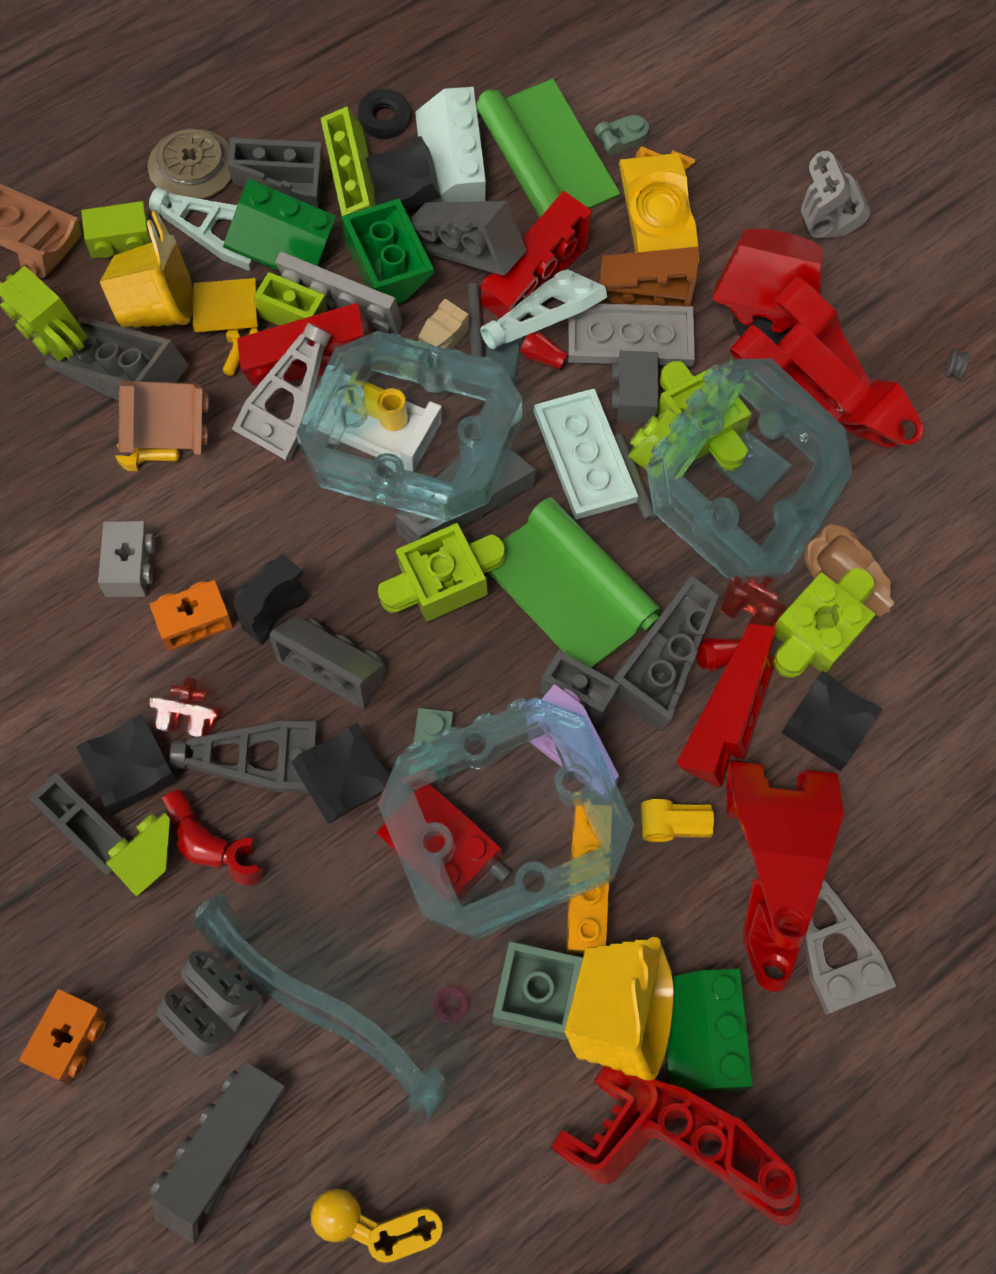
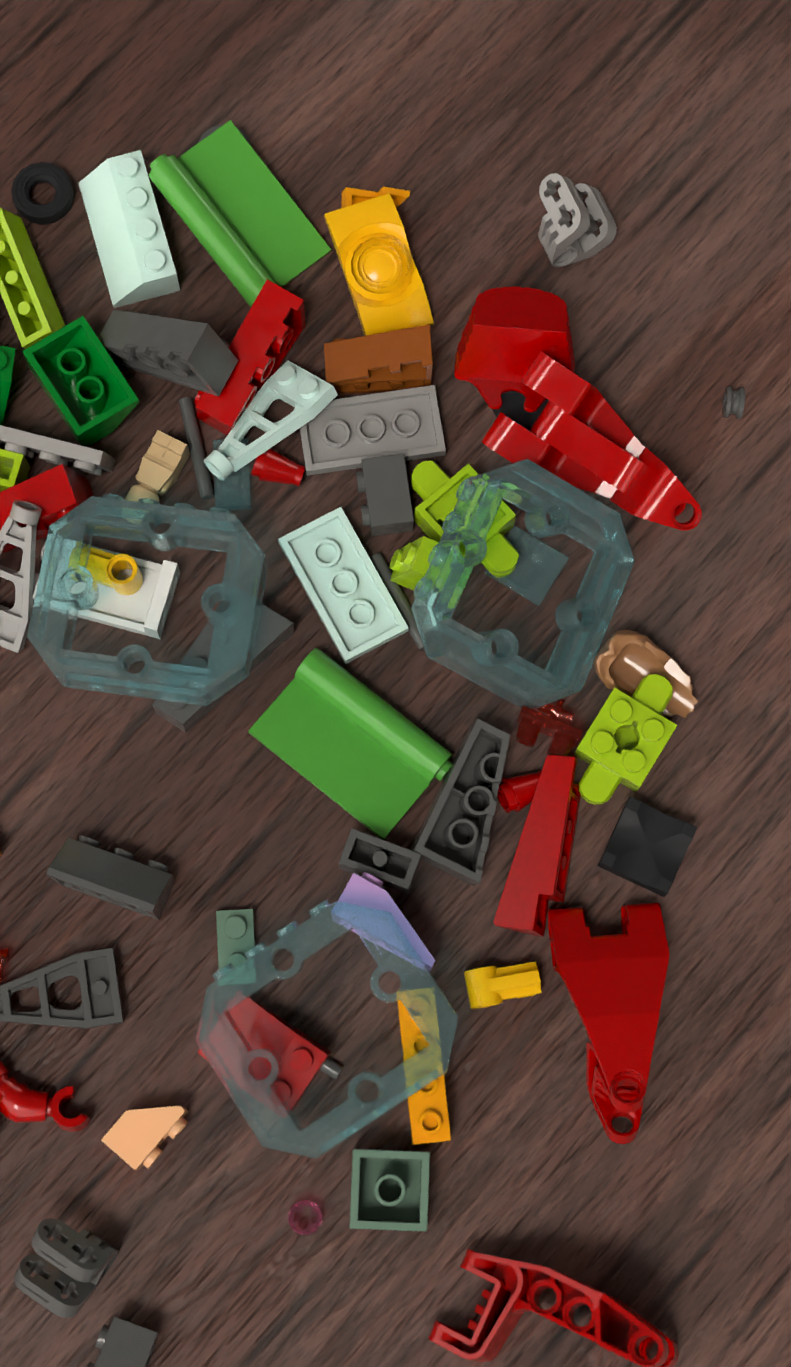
camera: 10 degrees left, 10 degrees up
(224, 933) = (67, 1198): clear light blue panel -> none
(269, 597) = (41, 813): black brick -> none
(310, 893) = (142, 1131): none -> light nougat slope
(341, 773) = (151, 1001): black brick -> none
(404, 175) = (82, 280): black brick -> none
(437, 560) = (213, 758): lime brick -> none
(622, 134) = (331, 163): sand green plate -> none
(623, 1007) = (477, 1195): yellow piece -> none
(708, 1033) = (562, 1198): green slope -> none
(851, 982) = (705, 1115): light grey plate -> none

